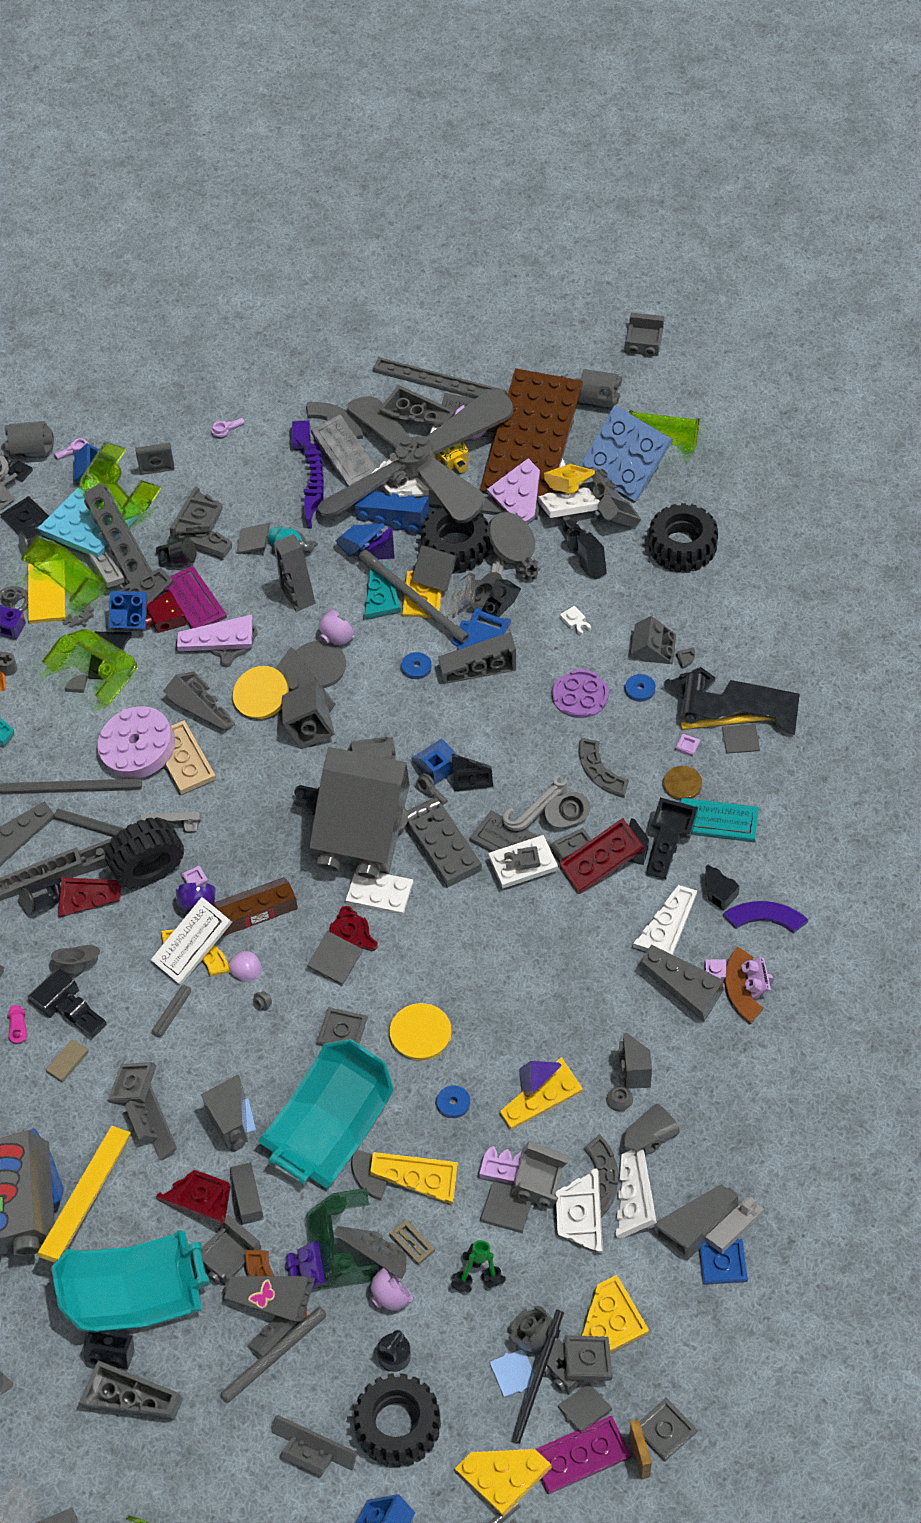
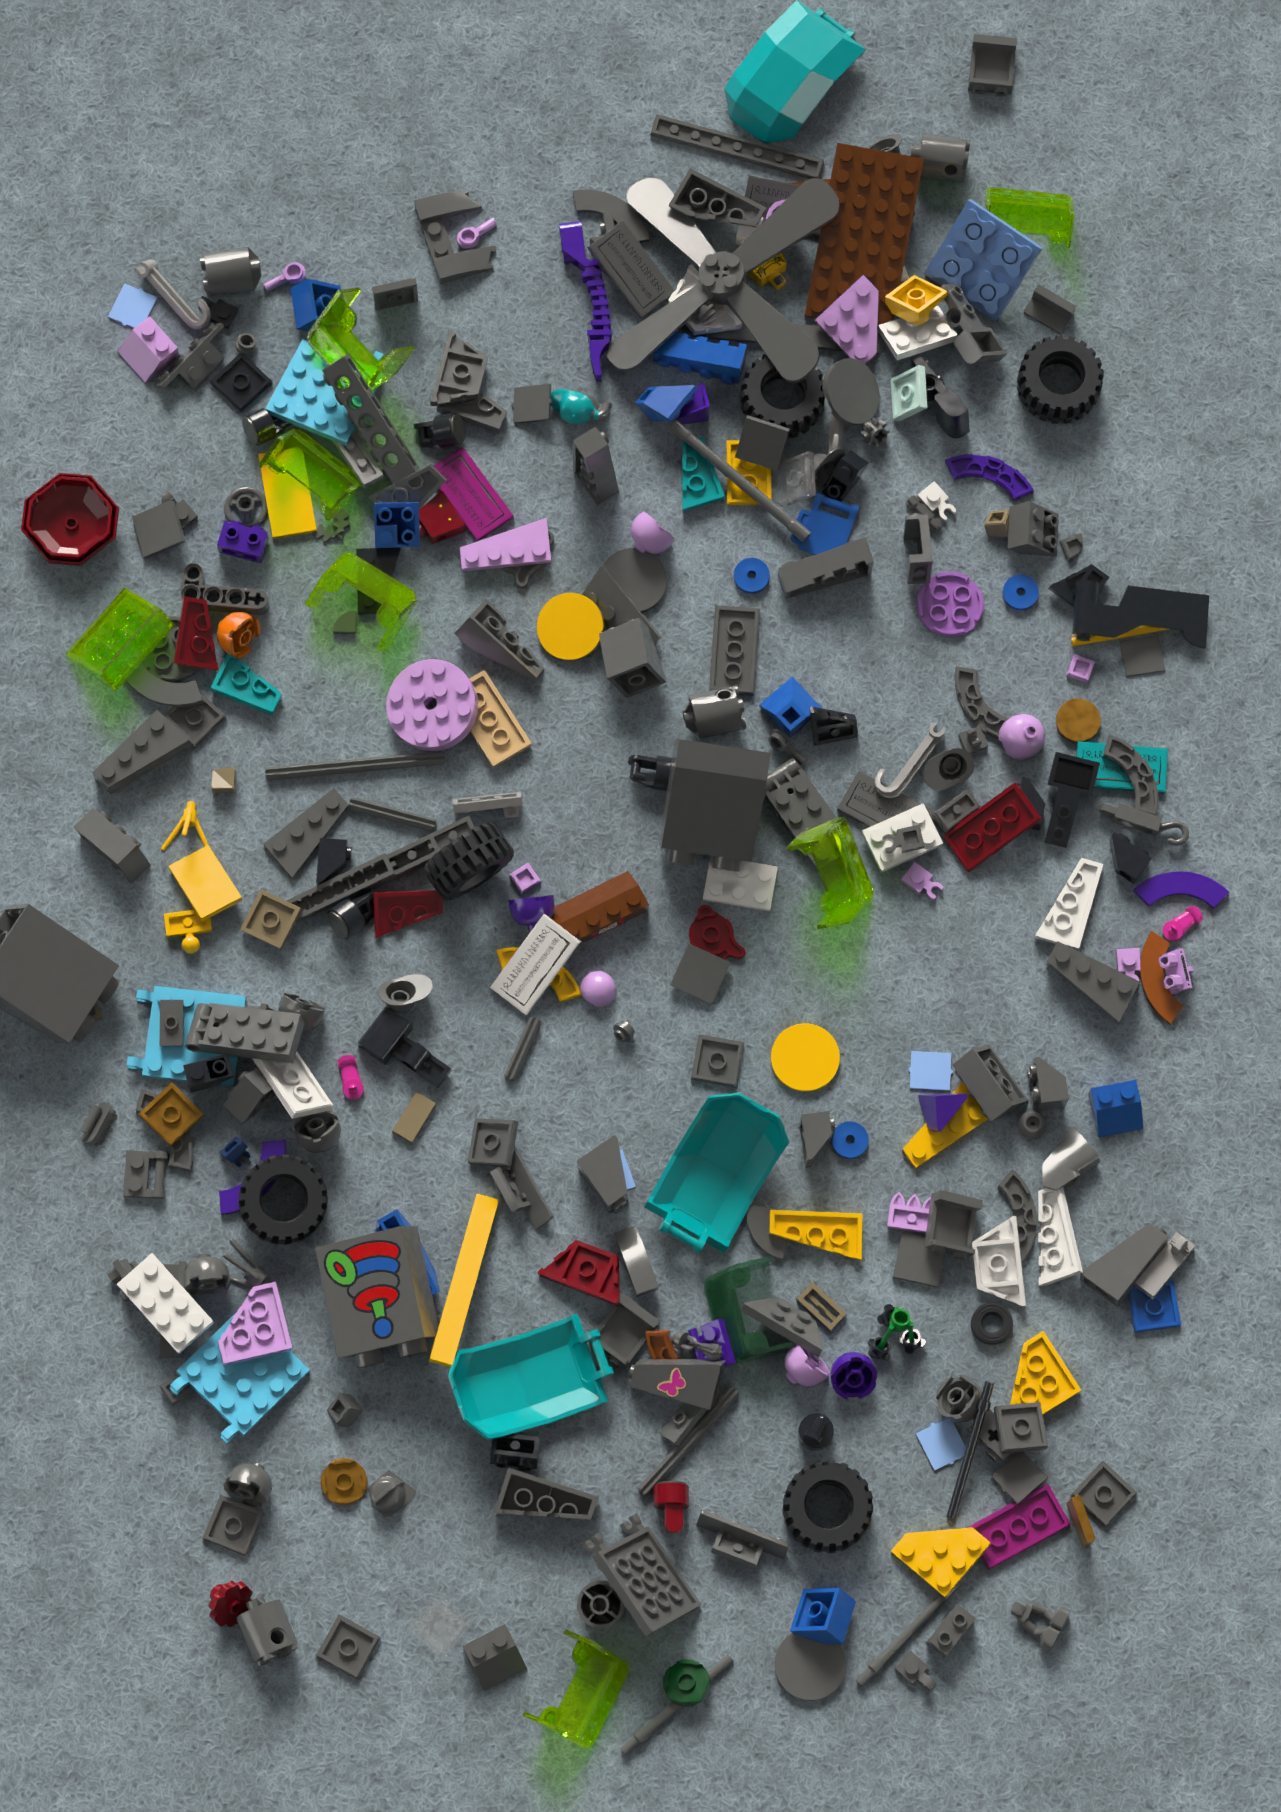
camera: 10 degrees left, 20 degrees up
(32, 850) = (332, 858): none -> black slope
(33, 490) = (246, 338): none -> dark grey plate
(169, 1493) = (600, 1604): none -> dark grey cylinder
(201, 444) = (450, 265): none -> dark grey wedge
(210, 1470) = (643, 1577): none -> dark grey plate
(249, 1404) = (672, 1498): none -> dark red piece
(279, 1261) = (683, 1339): none -> dark grey piece
(397, 715) = (734, 648): none -> dark grey tile
(422, 1091) = (815, 1134): none -> dark grey slope
(434, 1301) = (853, 1375): none -> dark purple cylinder
(463, 874) = (840, 870): none -> clear neon green windscreen
(482, 333) = (789, 72): none -> teal windscreen
(531, 1048) = (930, 1070): none -> light blue piece
(537, 896) = (919, 879): none -> lavender plate
(555, 648) = (920, 565): none -> dark grey panel
(558, 541) = (908, 393): none -> light aqua tile
(564, 628) = (913, 503): none -> dark grey axle
(576, 1255) = (988, 1337): none -> black tyre
(582, 1058) = (989, 1082): none -> dark grey slope
(592, 792) = (973, 740): none -> dark grey tile
(622, 600) = (991, 469): none -> dark purple tile
(624, 638) = (997, 524): none -> dark tan slope
(633, 790) = (1022, 736): none -> lavender cylinder
(678, 491) = (1050, 309): none -> dark grey panel
(697, 1087) = (1116, 1108): none -> blue slope
(731, 821) = (1137, 771): none -> dark grey tile
(733, 860) = (1144, 821): none -> dark grey piece
(760, 946) = (1181, 924): none -> dark pink piece

